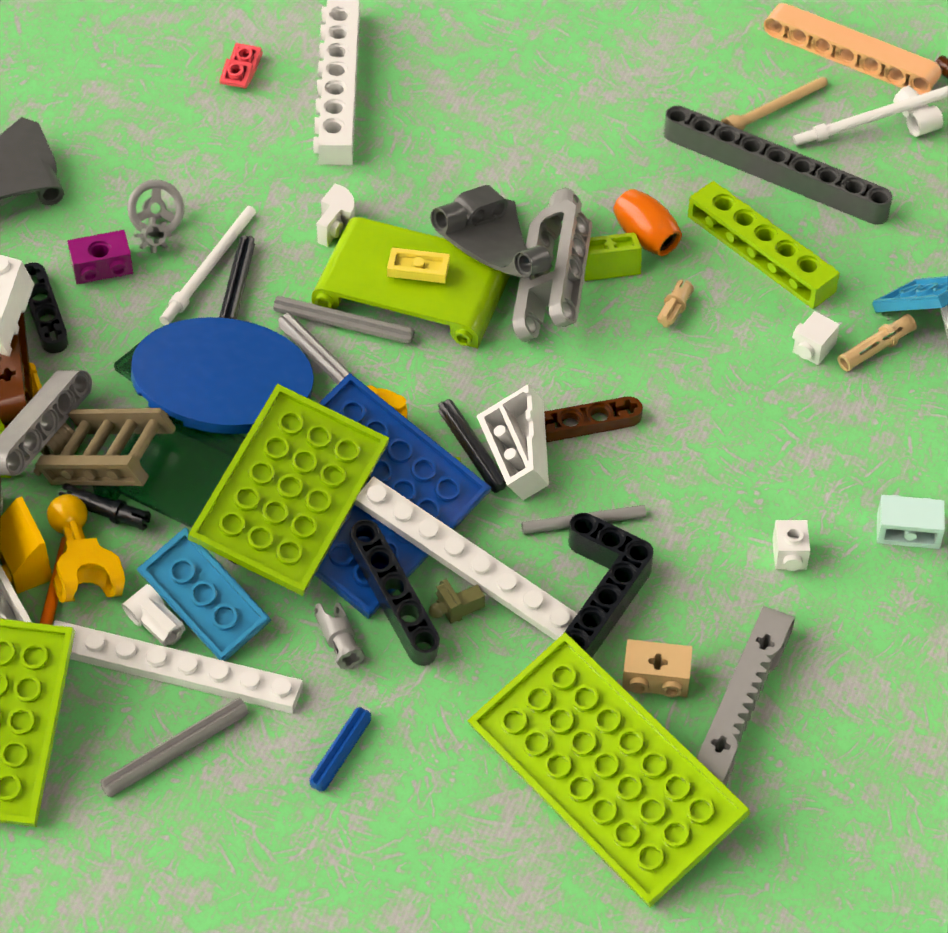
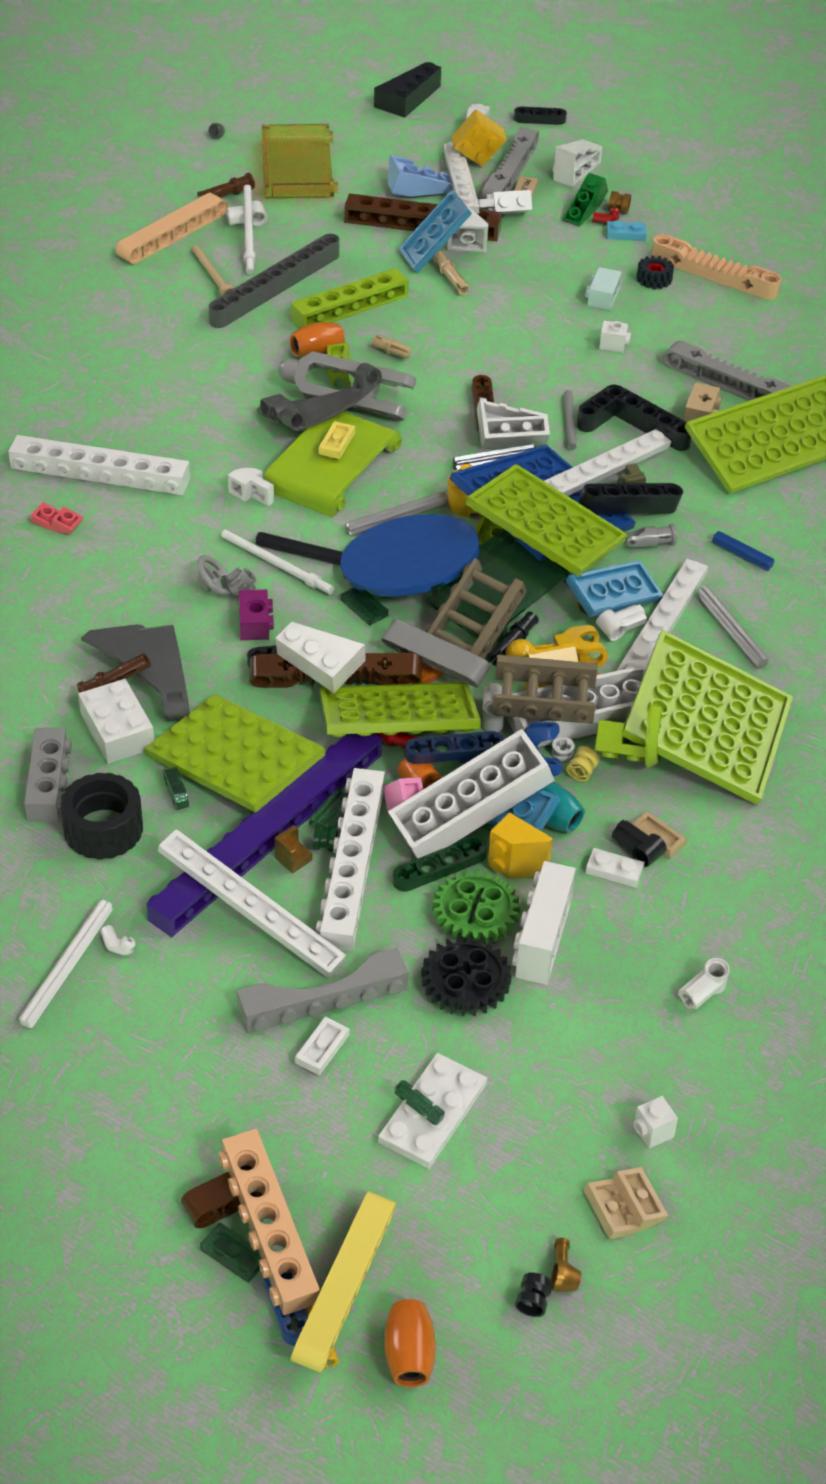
camera: 80 degrees left, 5 degrees down
(344, 319) = (357, 500): light grey axle -> none
(815, 338) = (442, 294): white brick -> none

